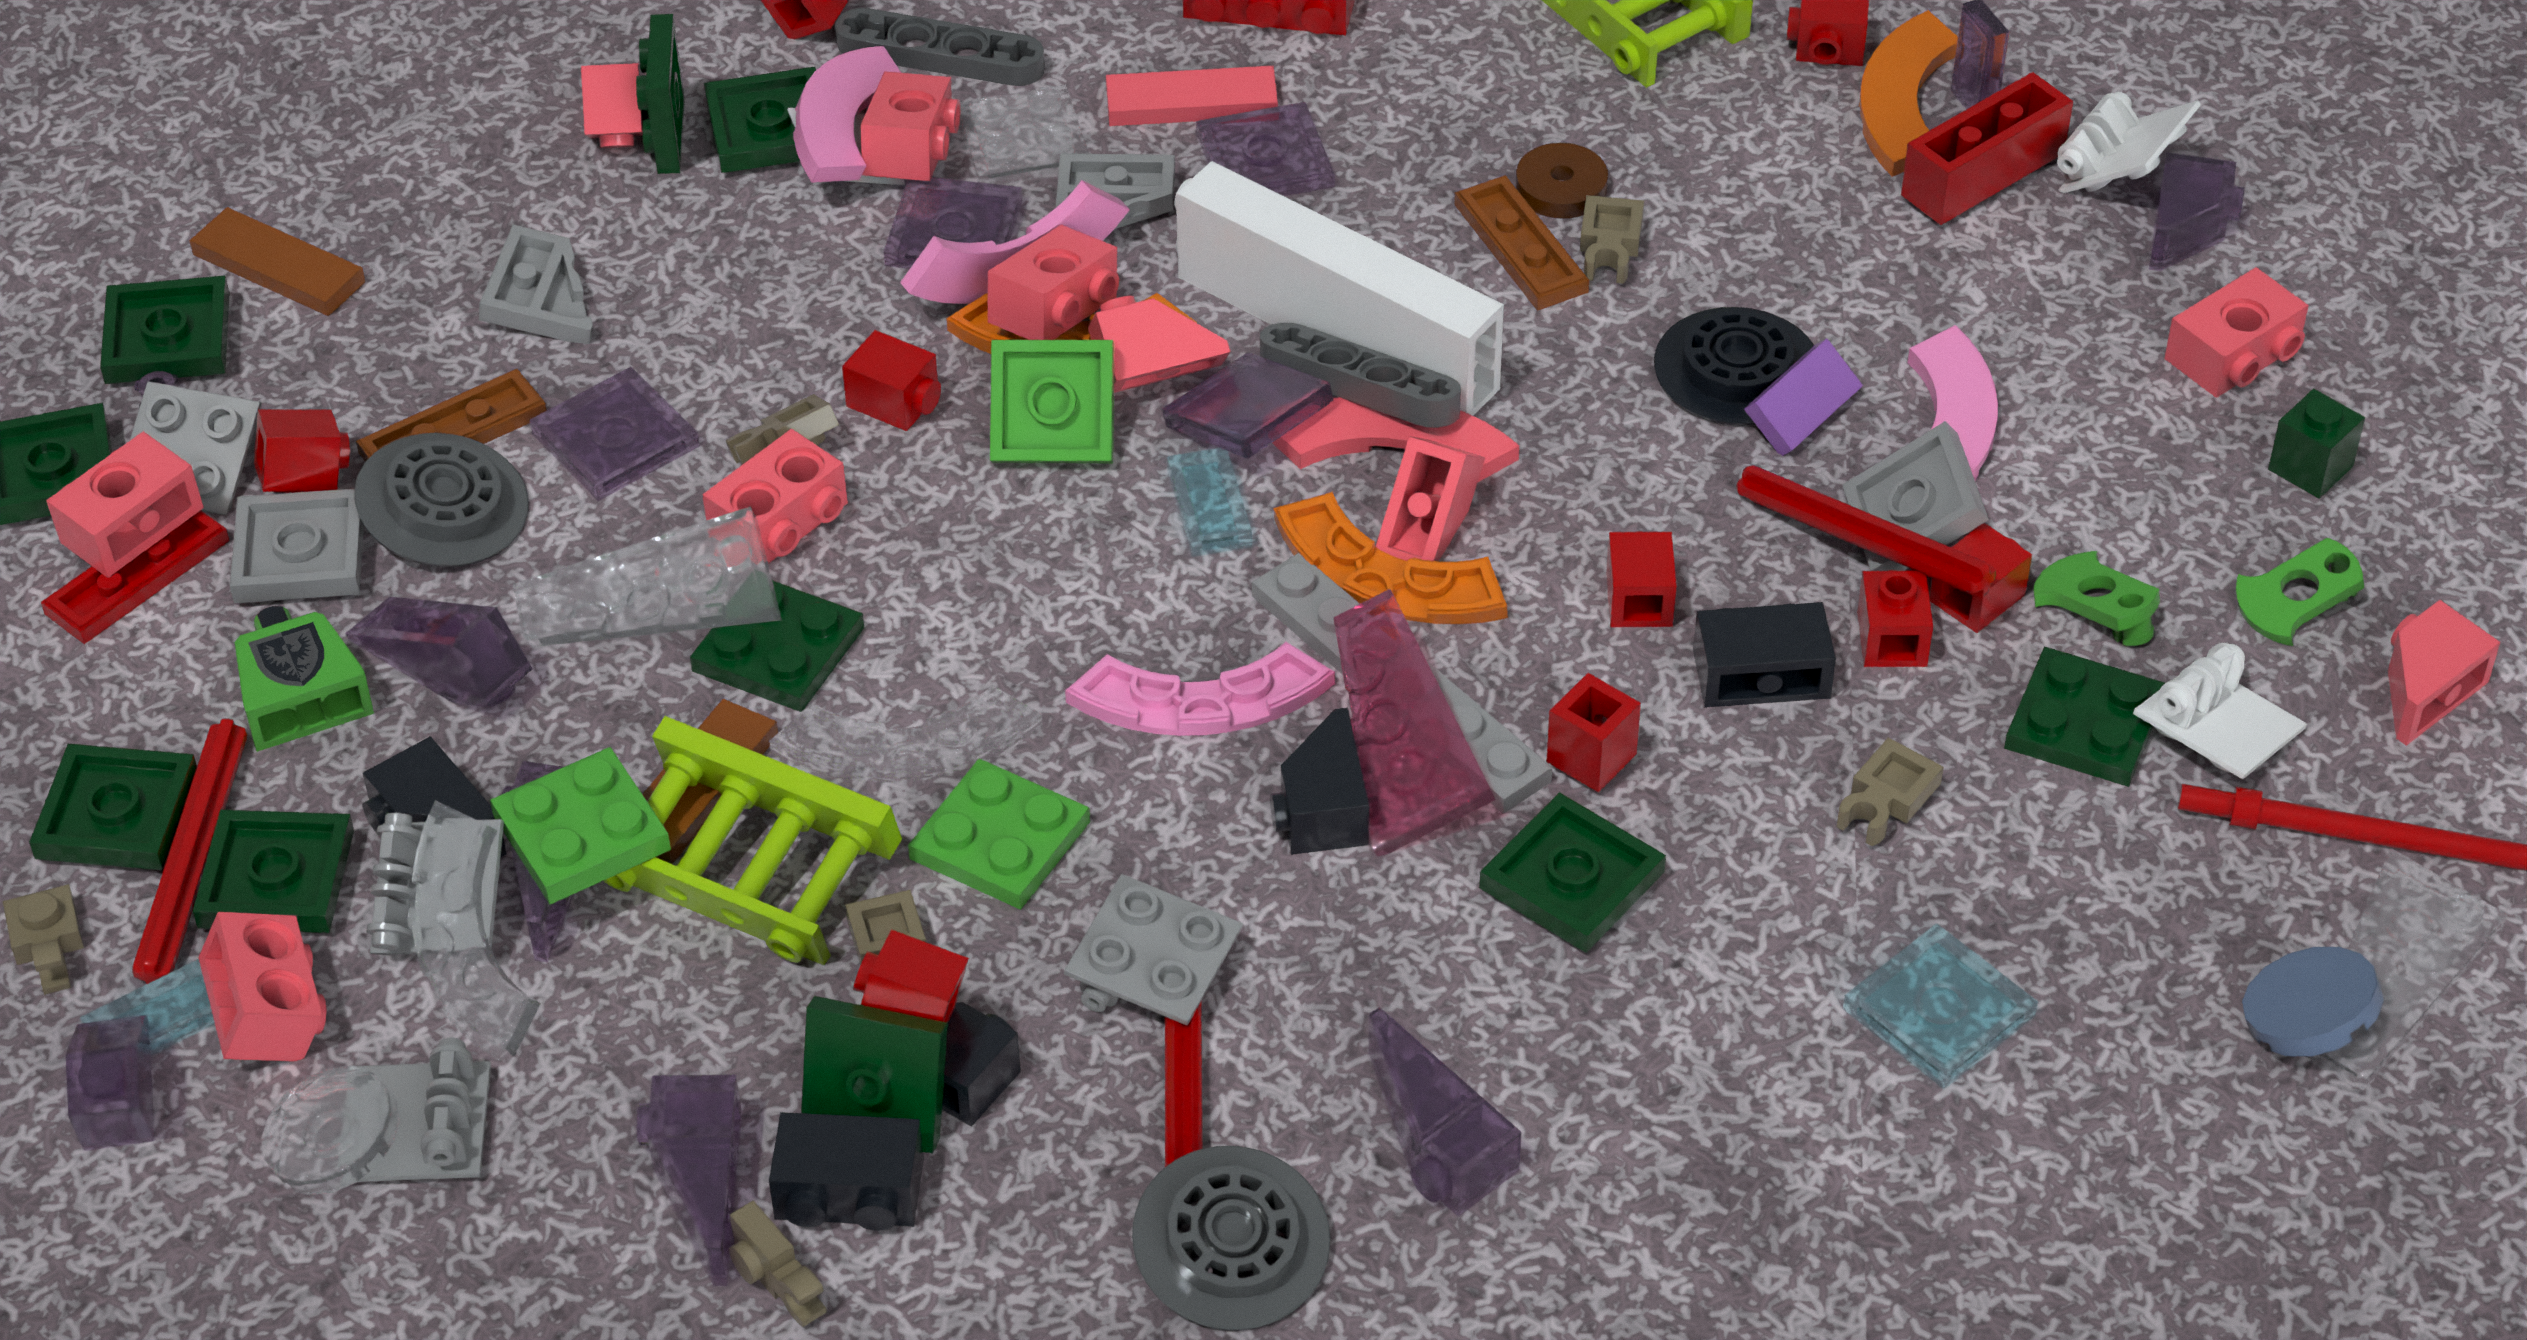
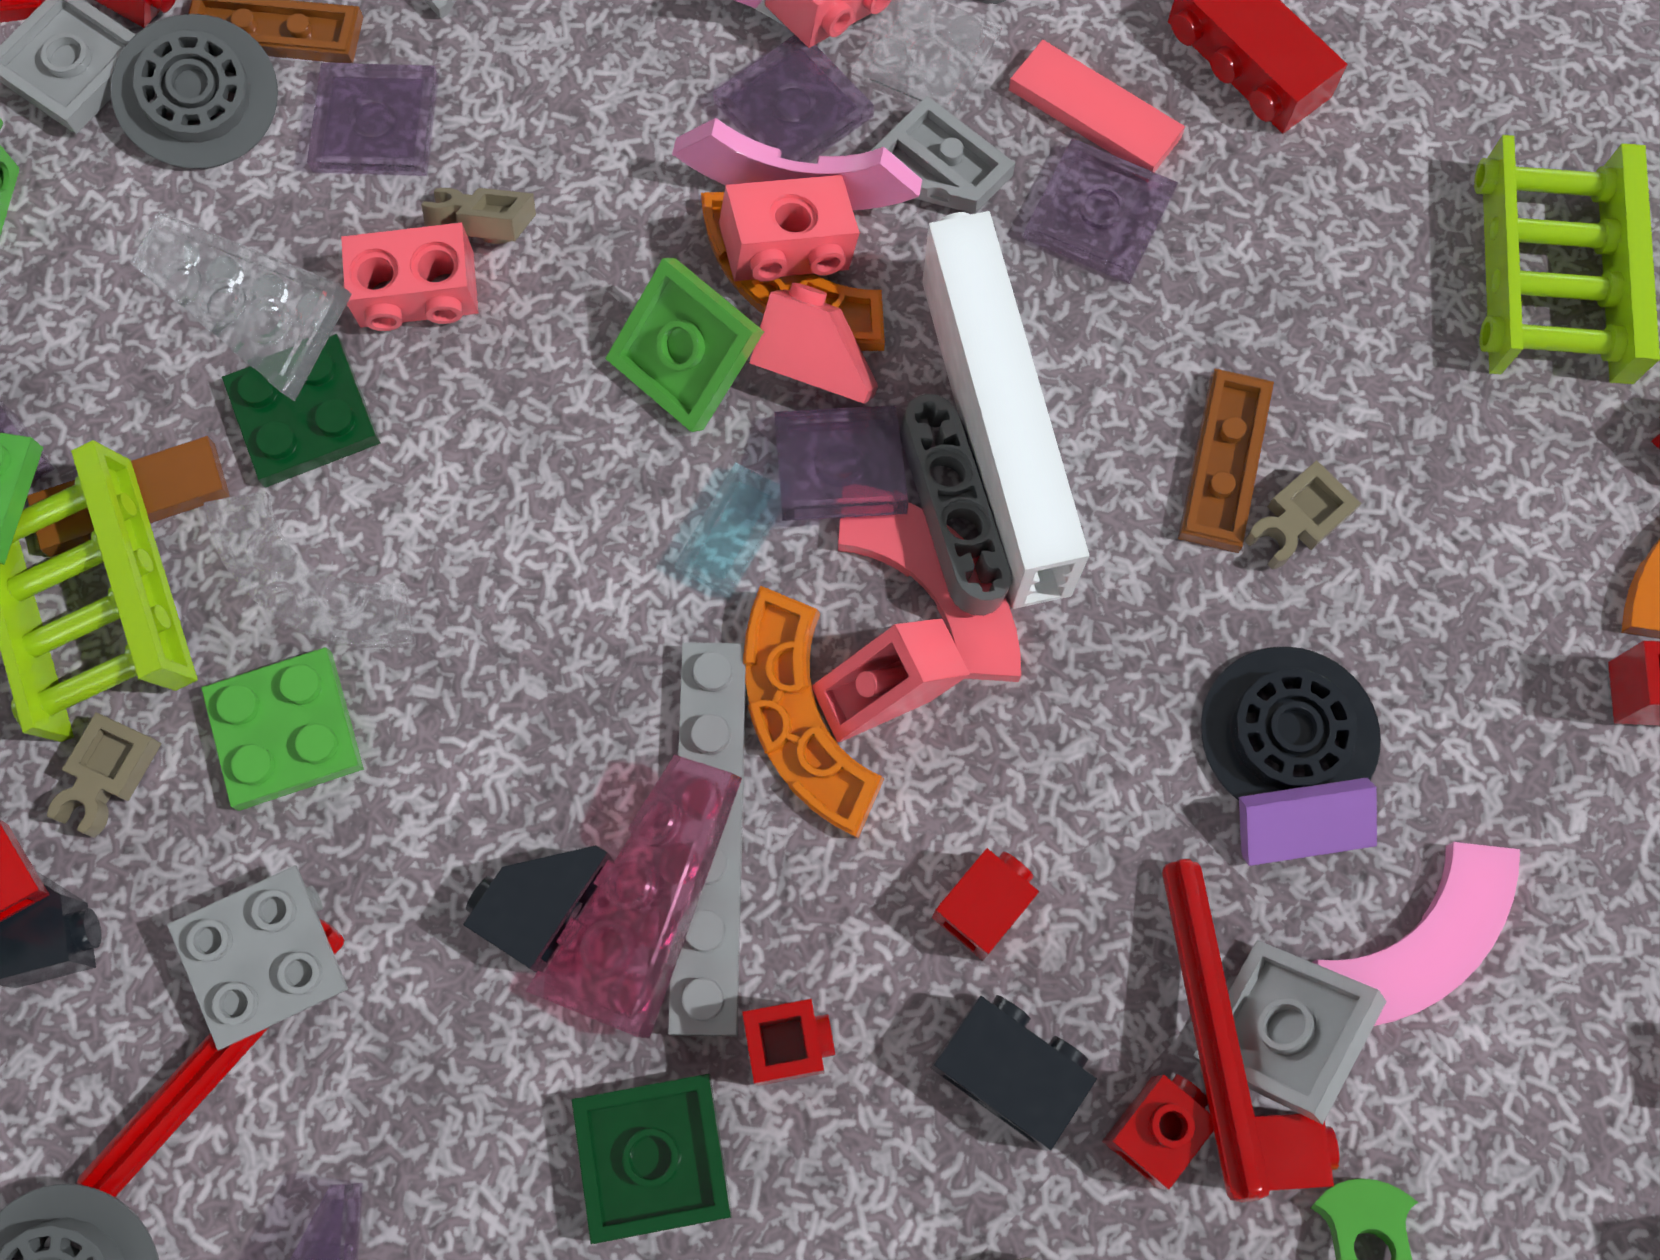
camera: 40 degrees right, 25 degrees up
(447, 647) = (62, 235): clear purple slope -> none
(891, 380) = (597, 225): red brick -> none
(1234, 702) = (543, 729): bright pink tile -> none
(1545, 165) = (1335, 400): reddish brown piece -> none

